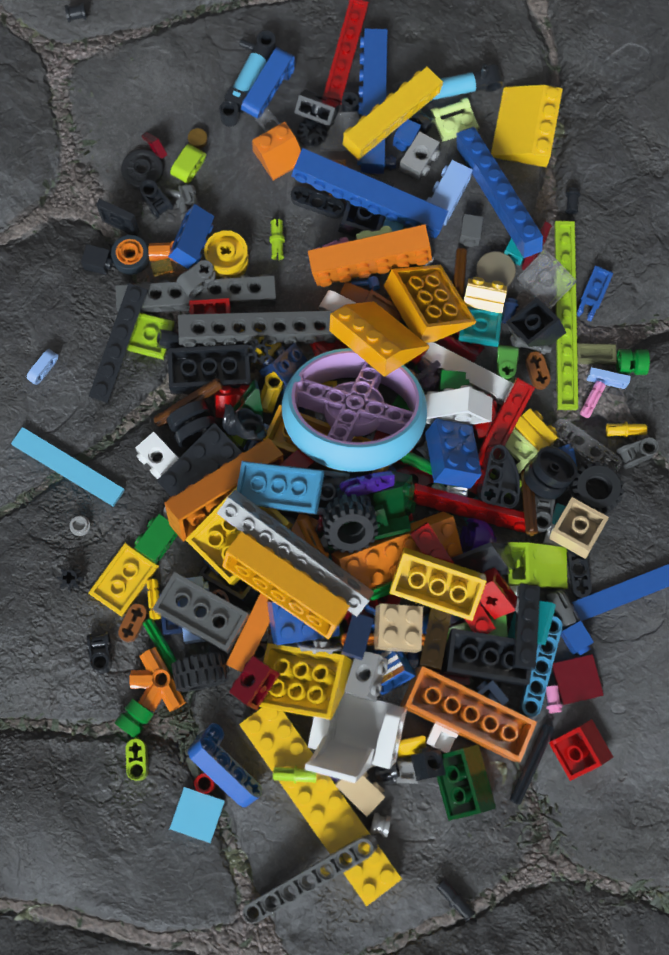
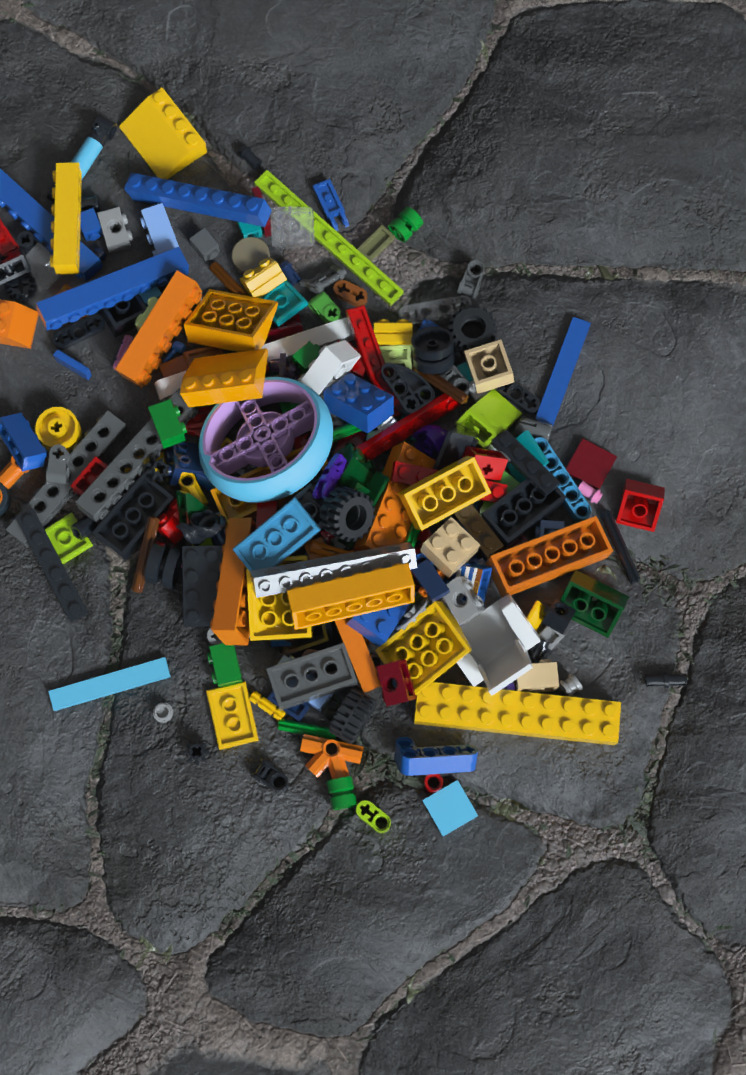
camera: 45 degrees left, 0 degrees up
(42, 366) = (15, 636): light blue beam -> none
(128, 620) = (266, 738): dark orange beam -> none
(149, 448) = (154, 606): white brick -> none
(162, 267) = (22, 484): clear yellow tile -> none
(277, 239) = (80, 385): lime pin -> none
(287, 221) = (72, 364): none -> blue tile
(293, 774) = (485, 711): lime axle -> none
(300, 326) = (167, 424): none -> green brick
(300, 883) = (566, 774): dark grey beam -> none
(441, 738) = (547, 591): white panel -> none
(449, 127) = (115, 183): yellowish green plate -> none
(536, 324) = (318, 263): black slope -> none
(577, 638) = (563, 438): blue brick -> none
(592, 399) = (406, 276): bright pink axle -> none
(608, 378) = (401, 251): light blue tile -> none
(625, 429) = (448, 273): yellow axle -> none

